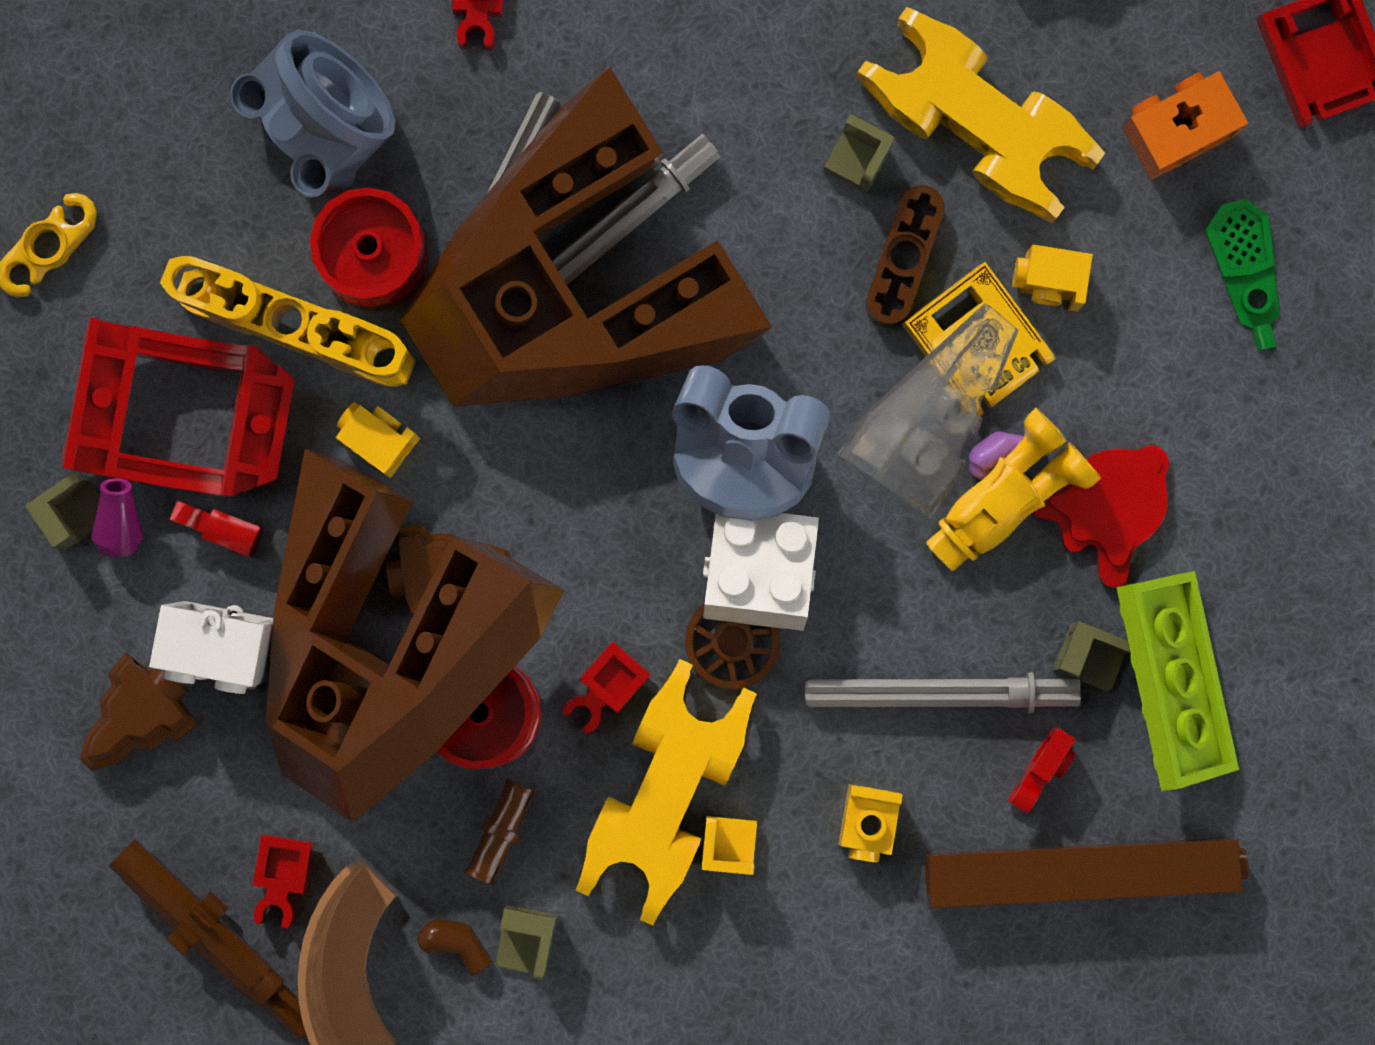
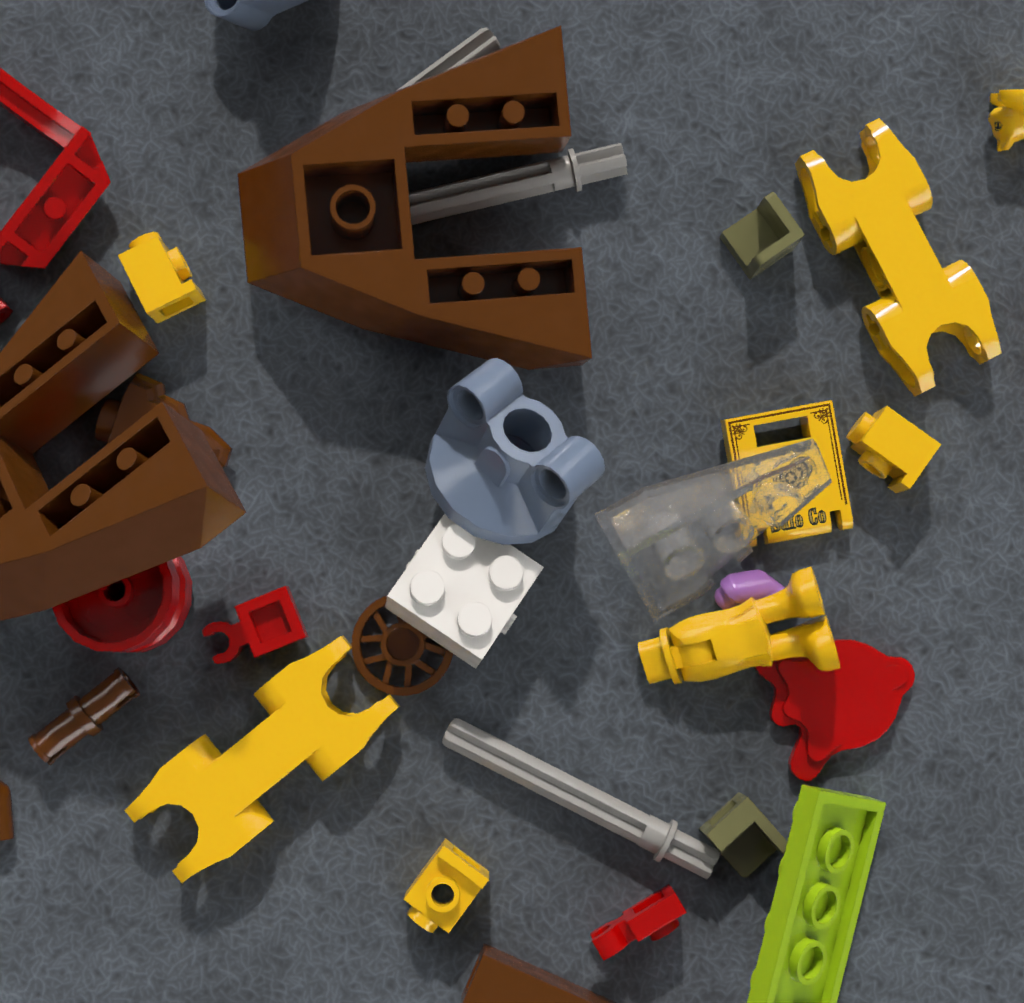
camera: 20 degrees right, 0 degrees up
(267, 306) = (109, 101): yellow piece -> none
(348, 228) = (244, 91): red wheel -> none
(526, 940) = (56, 832): olive panel -> none
(729, 845) = (296, 842): yellow panel -> none
(929, 226) = (773, 319): reddish brown beam -> none

